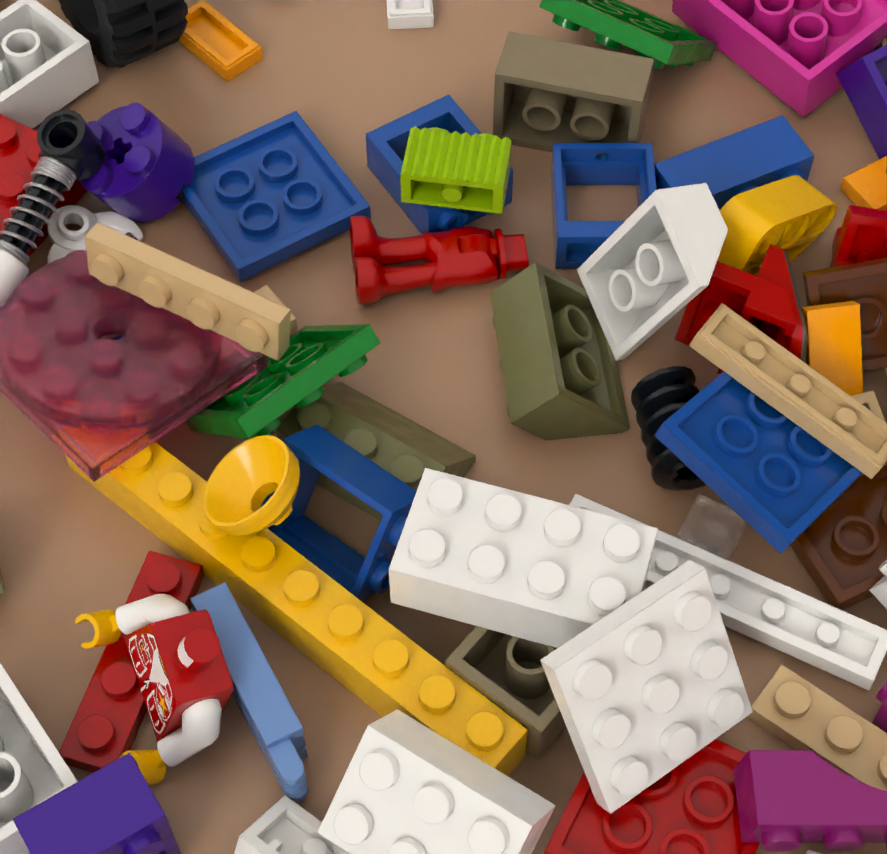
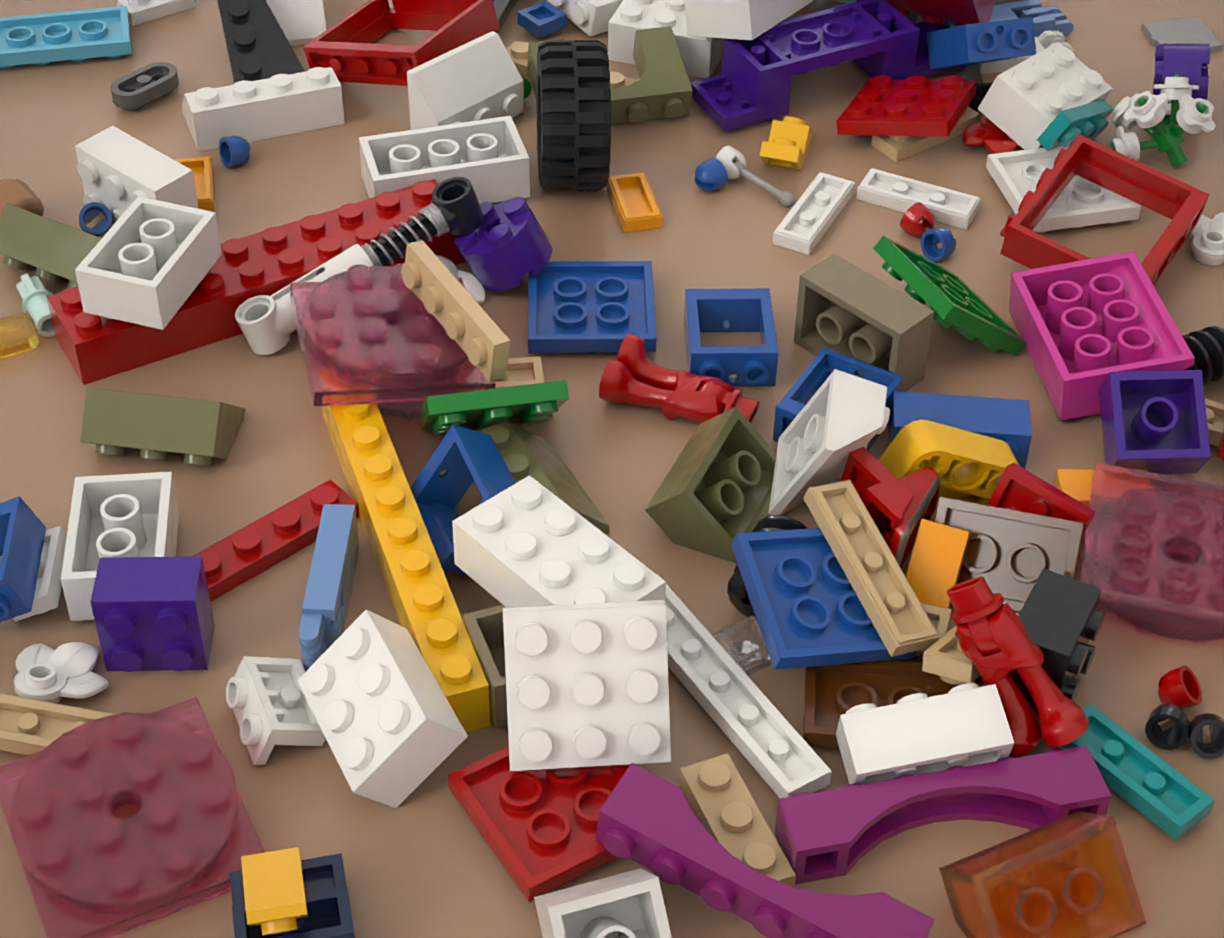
camera: 30 degrees right, 15 degrees down
(177, 671) = (279, 552): torso -> none
(245, 480) = (411, 449): yellow piece -> none
(456, 170) = (726, 329): lime brick -> none

